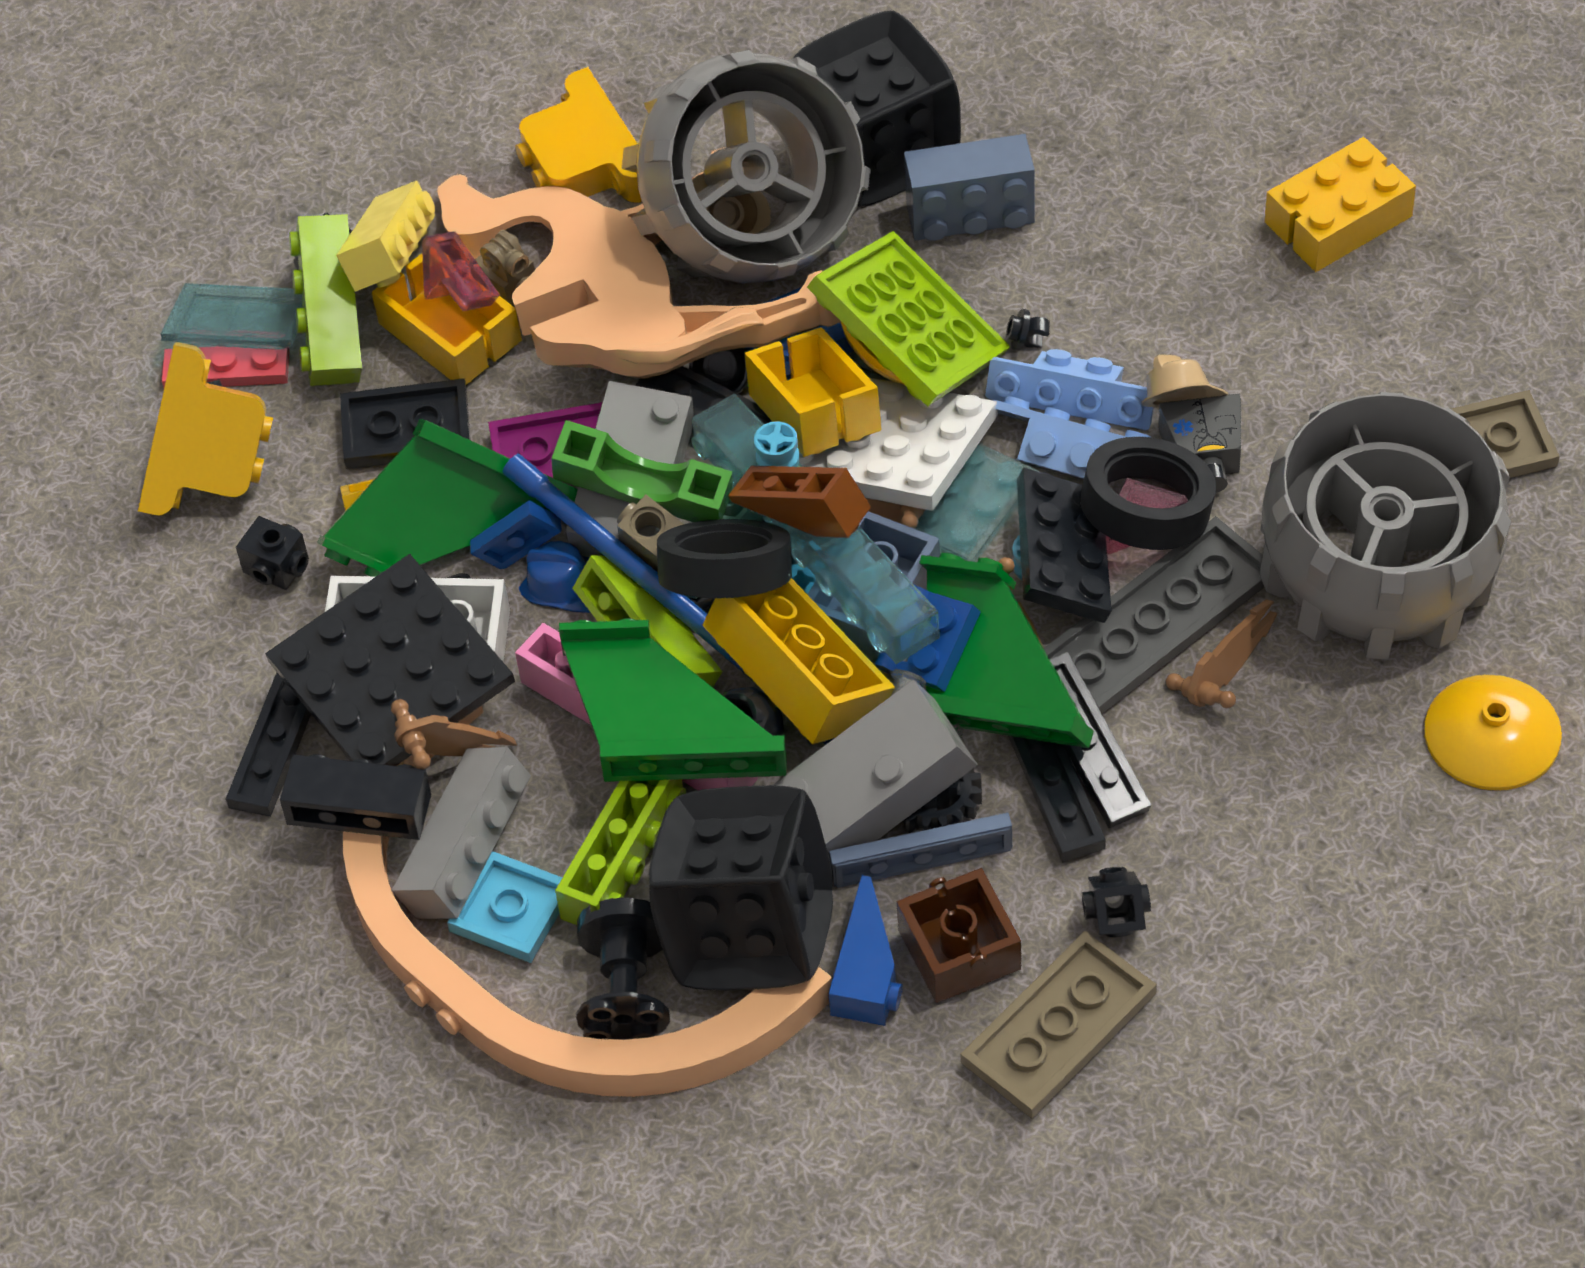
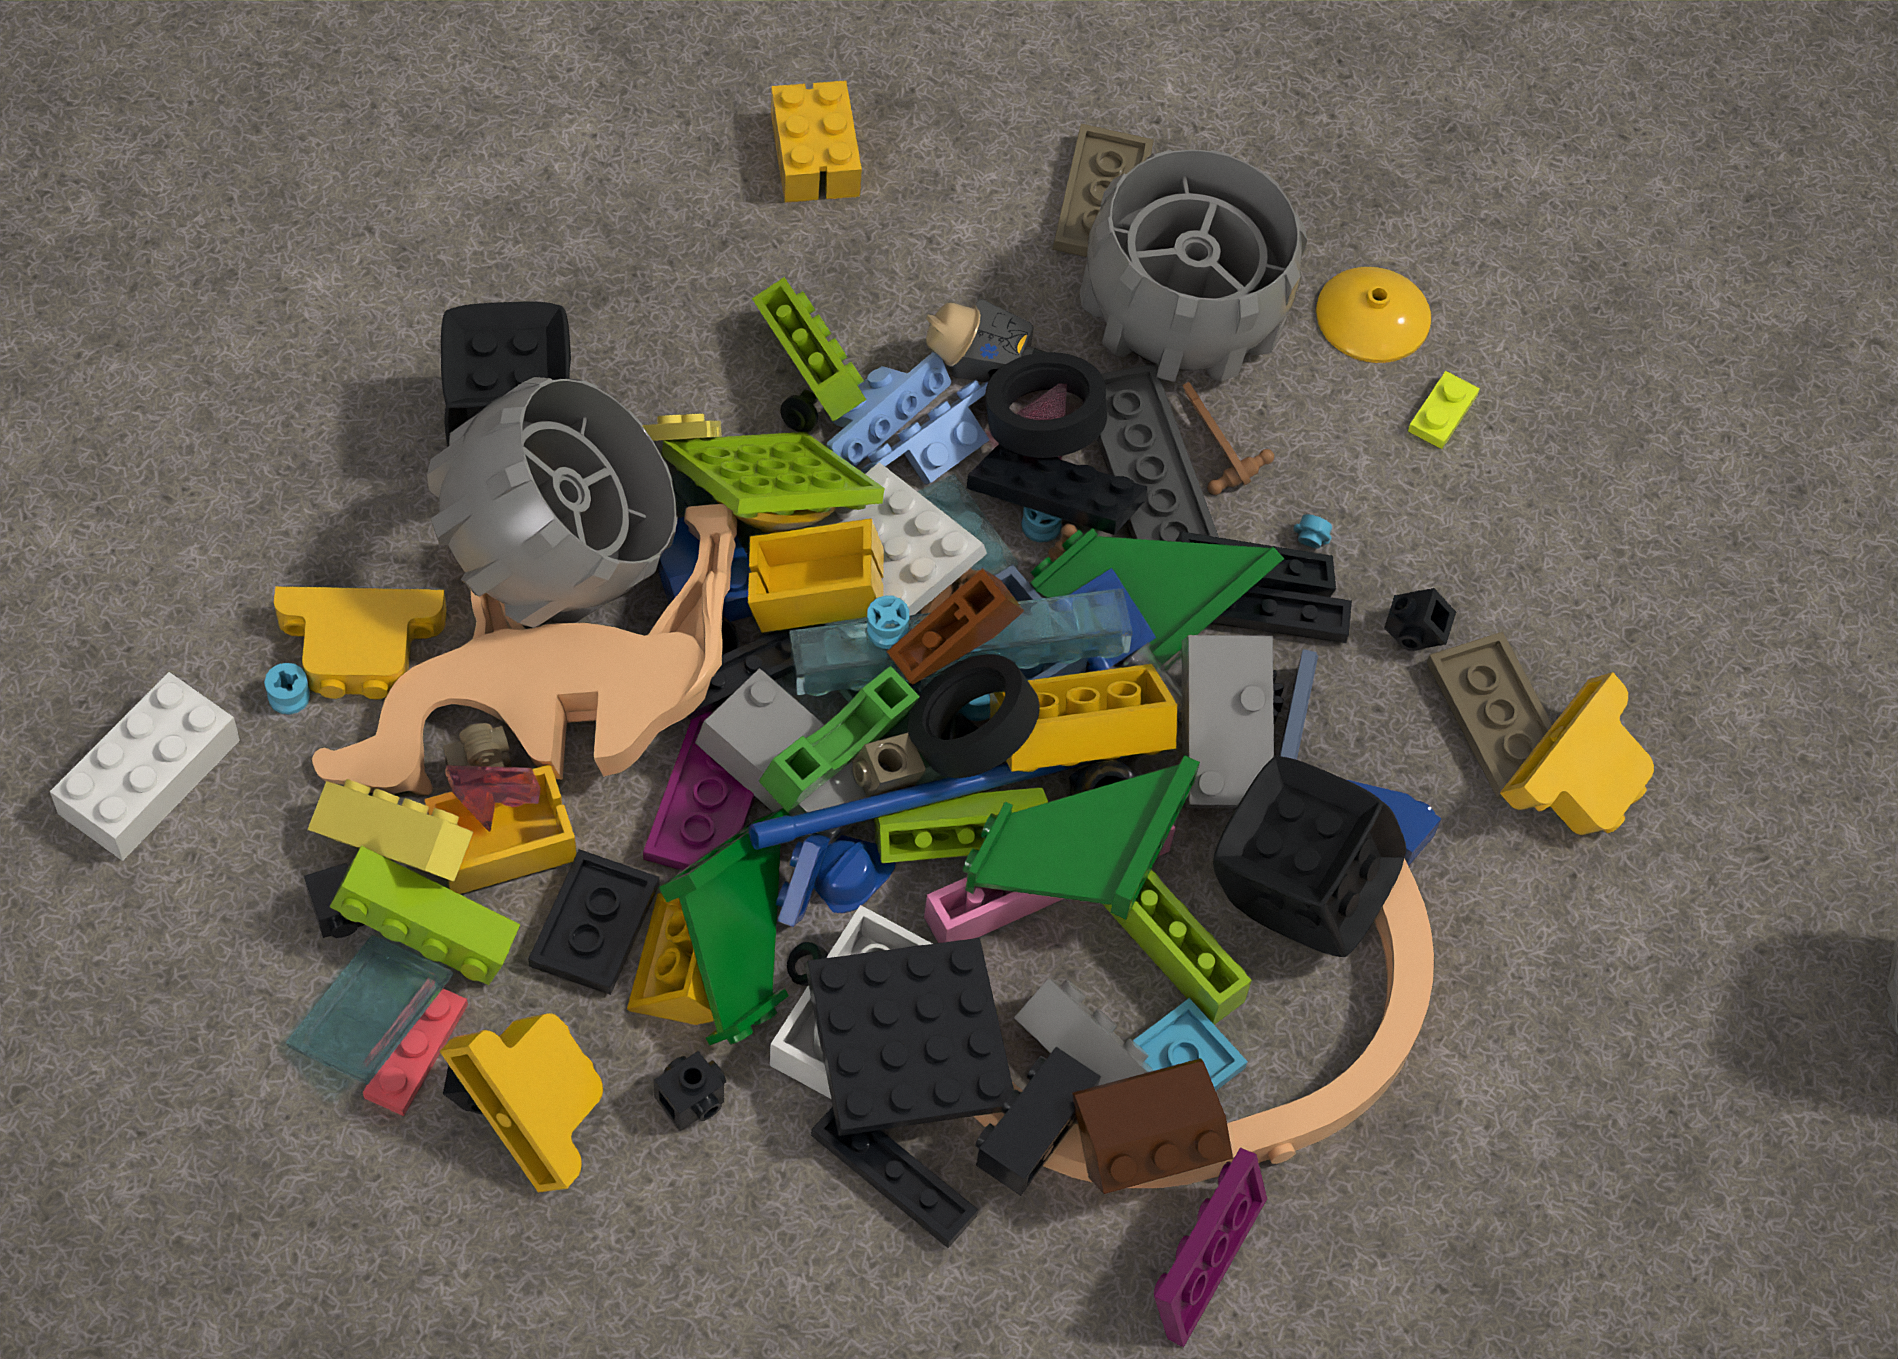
camera: 75 degrees left, 5 degrees up
(309, 991) = (1211, 1246): none -> magenta plate
(378, 77) = (145, 766): none -> white brick
(382, 875) = (1151, 1126): none -> reddish brown slope
(439, 736) = (1009, 1039): medium nougat piece -> none
(504, 127) = (280, 696): none -> medium azure wheel
(622, 938) = (1300, 985): black piece -> none
(916, 237) = (683, 427): none -> light yellow wing
(959, 934) = (1397, 738): reddish brown brick -> none
(970, 187) = (640, 357): sand blue brick -> none
(1026, 1108) = (1585, 763): none -> yellow brick
(1079, 293) = (809, 349): none -> lime brick
(1173, 780) = (1313, 531): none -> medium azure plate
(1412, 837) = (1443, 409): none -> neon yellow plate

